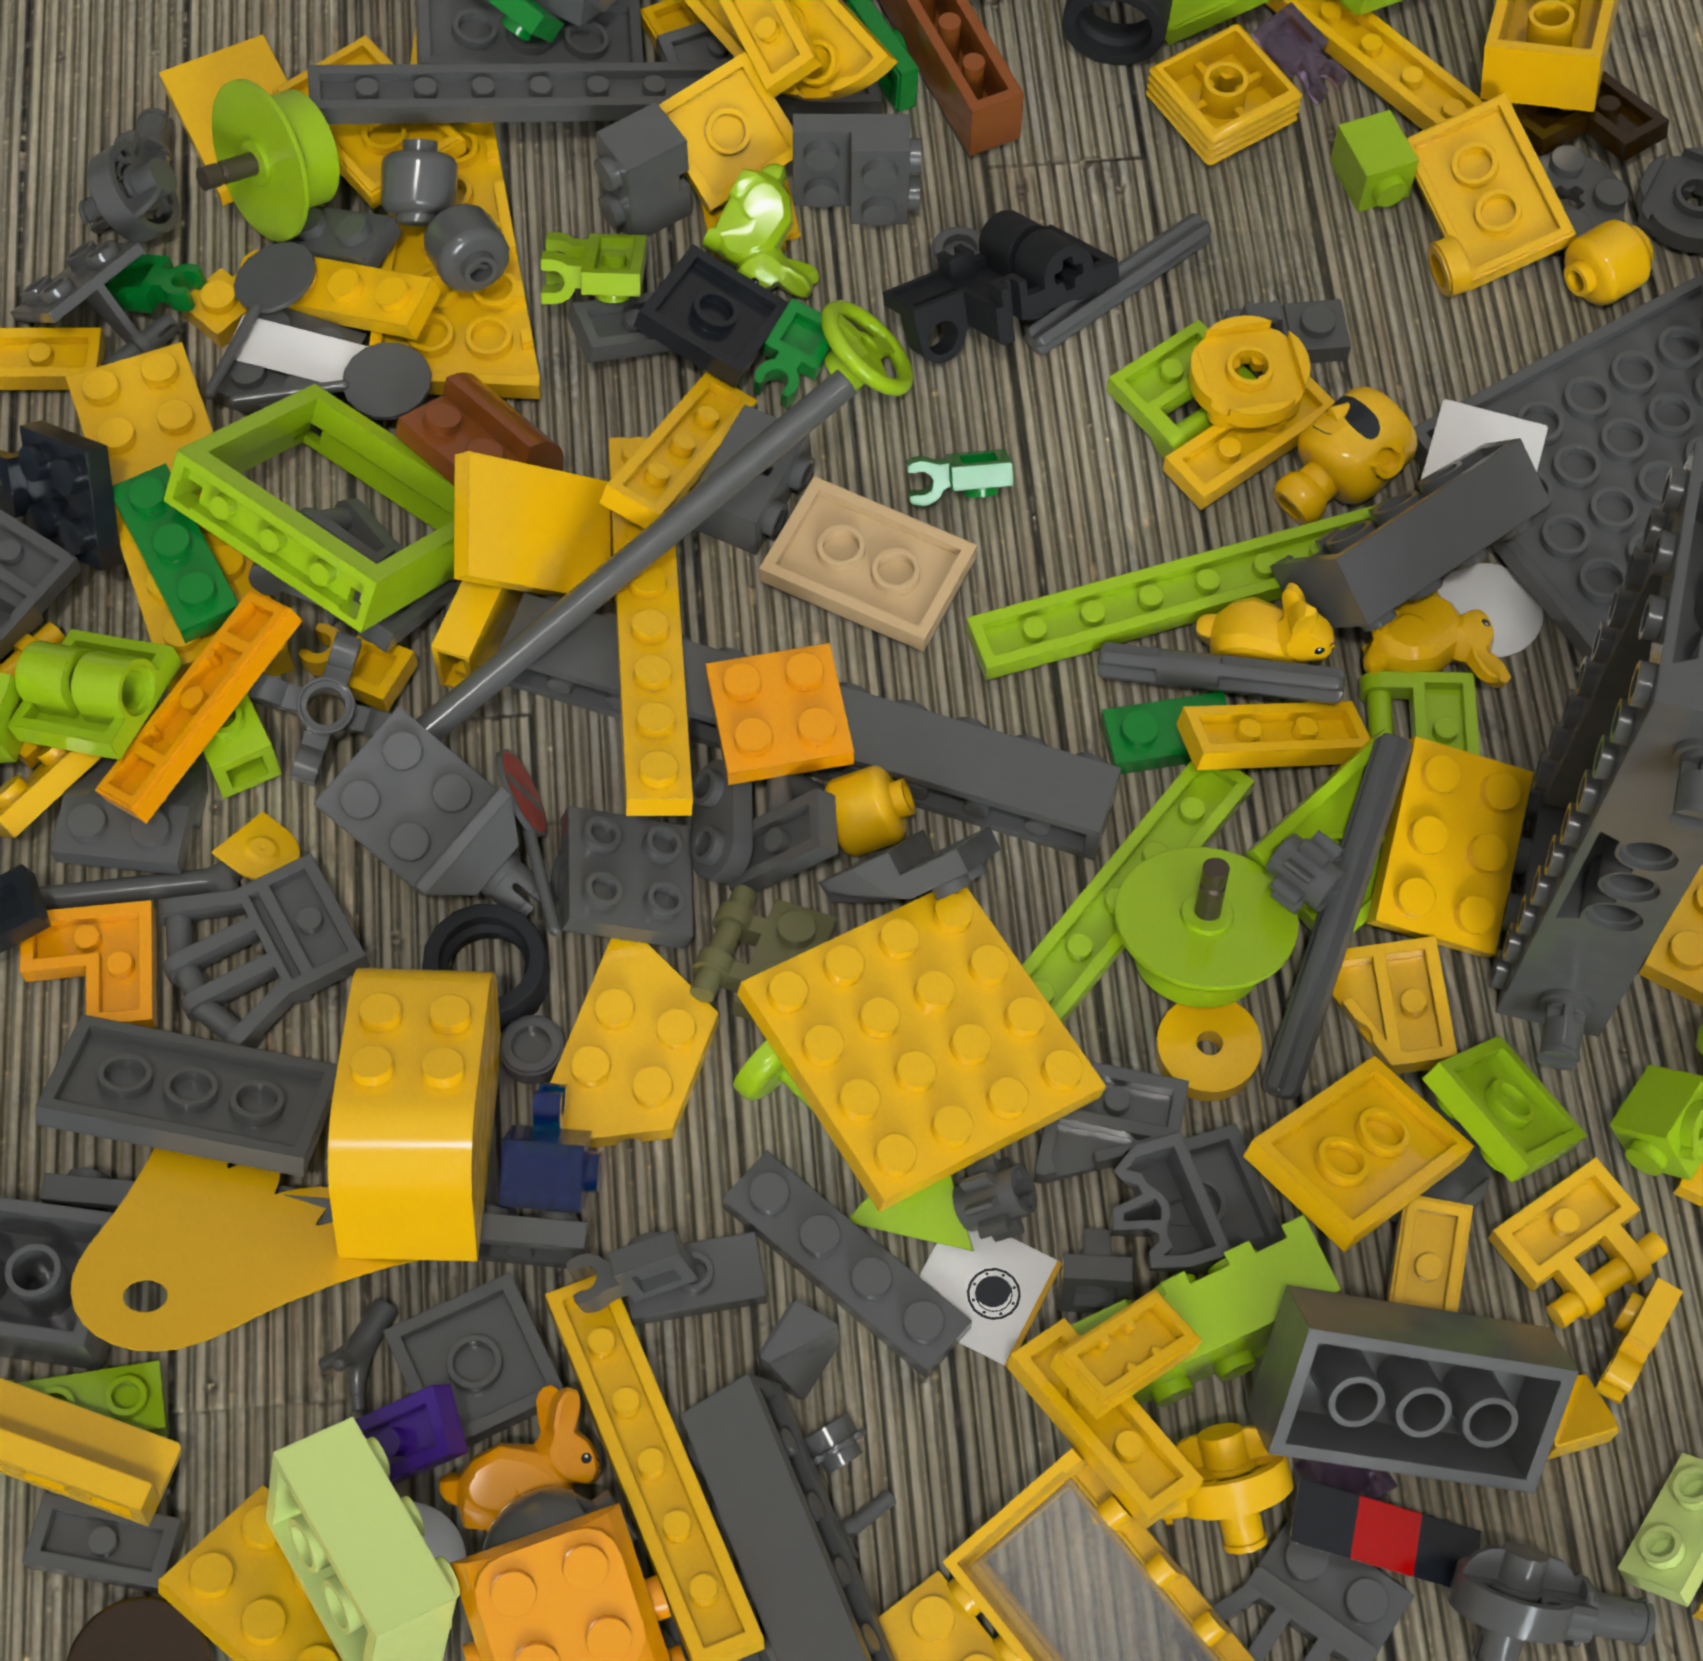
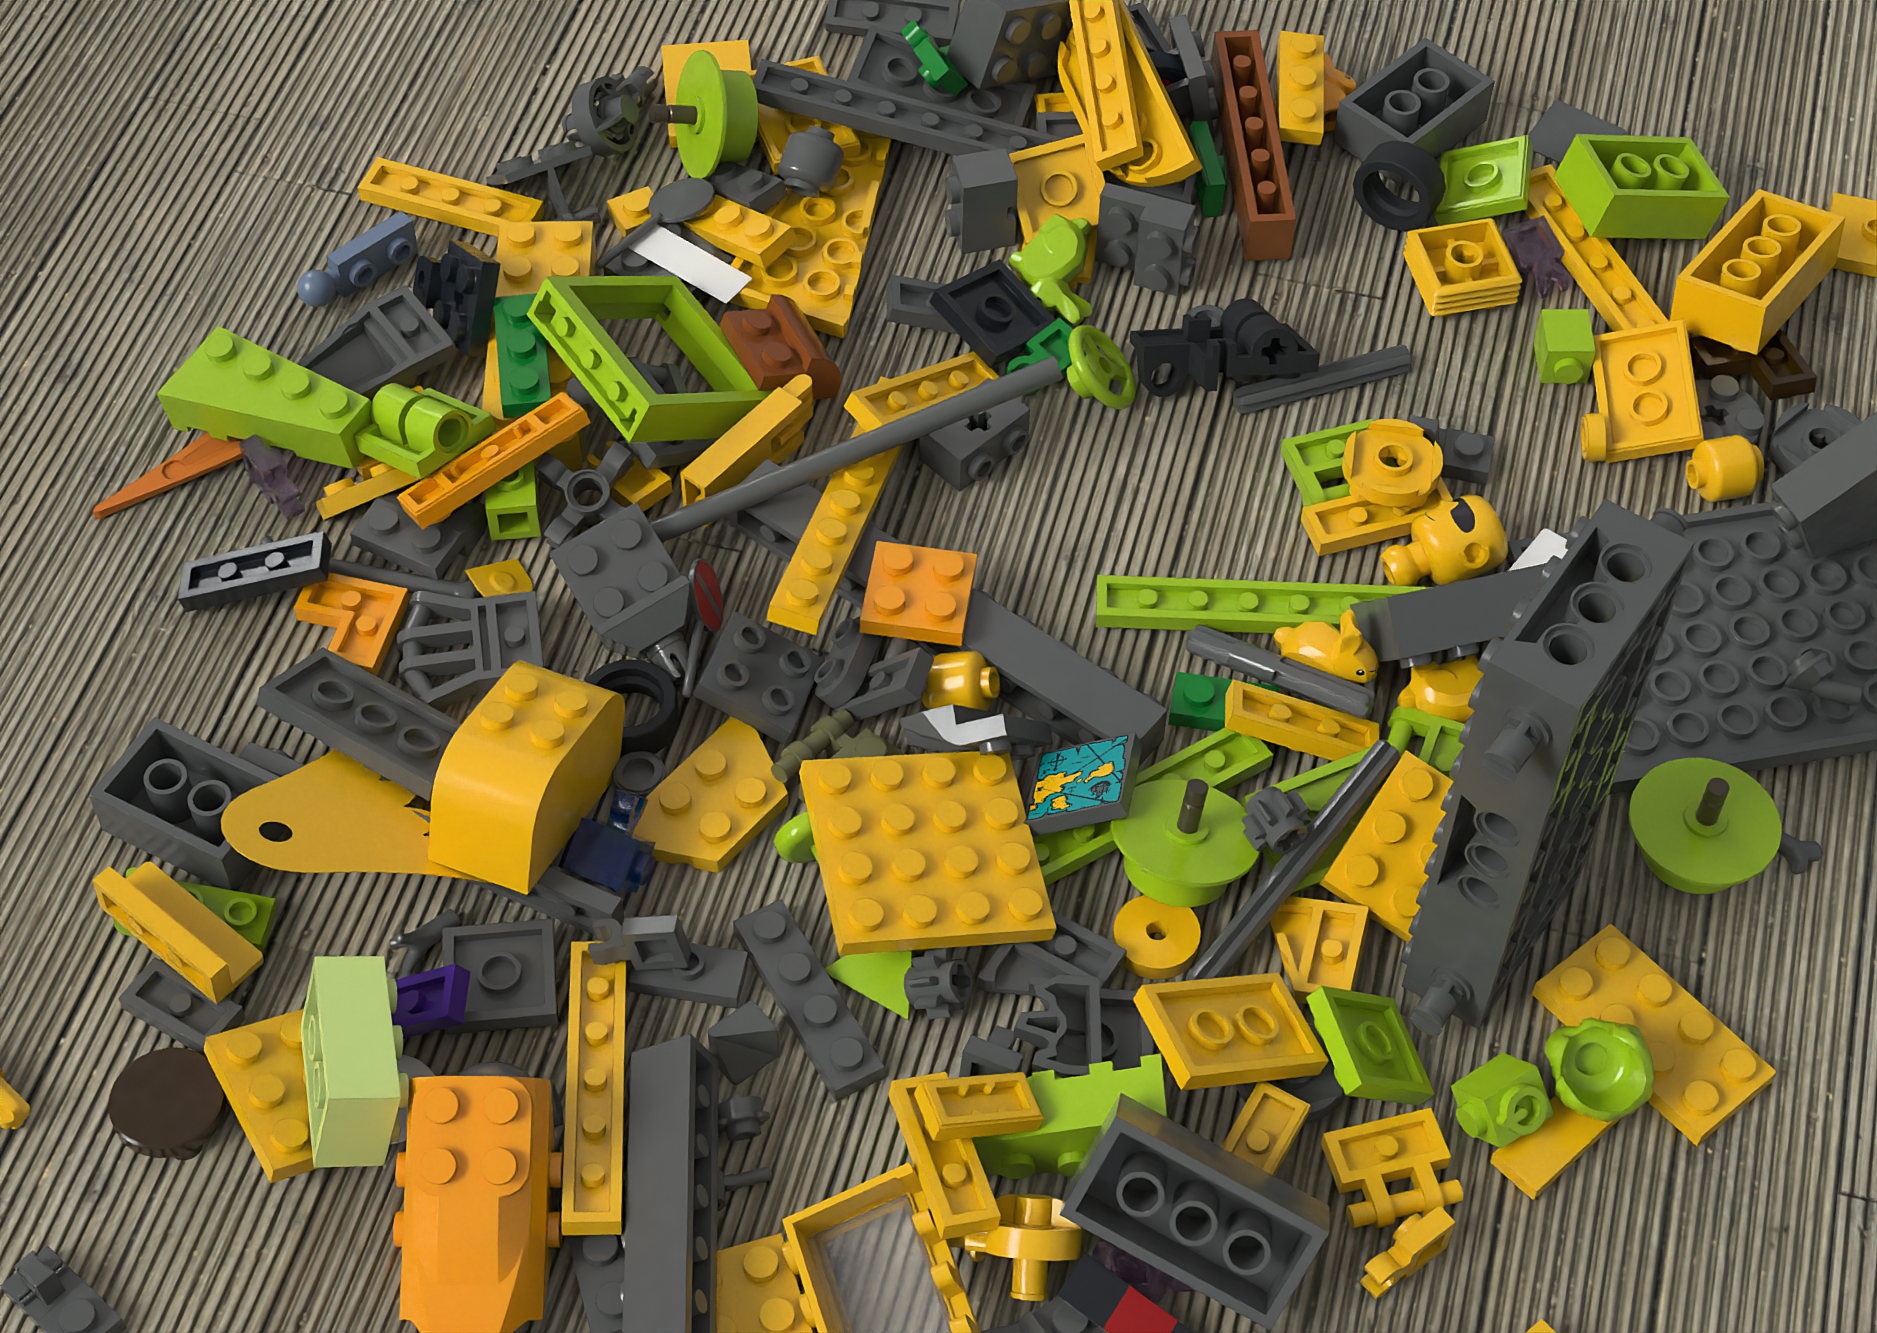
camera: 20 degrees right, 10 degrees down
(155, 280) = (590, 179): green plate -> none
(377, 383) = (724, 288): dark grey piece -> none
(465, 244) = (827, 215): dark grey head -> none
(509, 1470) = (531, 1052): light orange animal -> none
(527, 525) = (782, 406): yellow tile -> none
(599, 266) = (925, 257): lime plate -> none
(868, 563) = (1040, 518): tan plate -> none
(973, 472) = (1149, 478): plate -> none
(995, 1287) = (912, 1046): white sticker -> none
(1065, 895) = (1083, 784): none -> tile
(1584, 1422) = (1330, 1293): yellow slope -> none

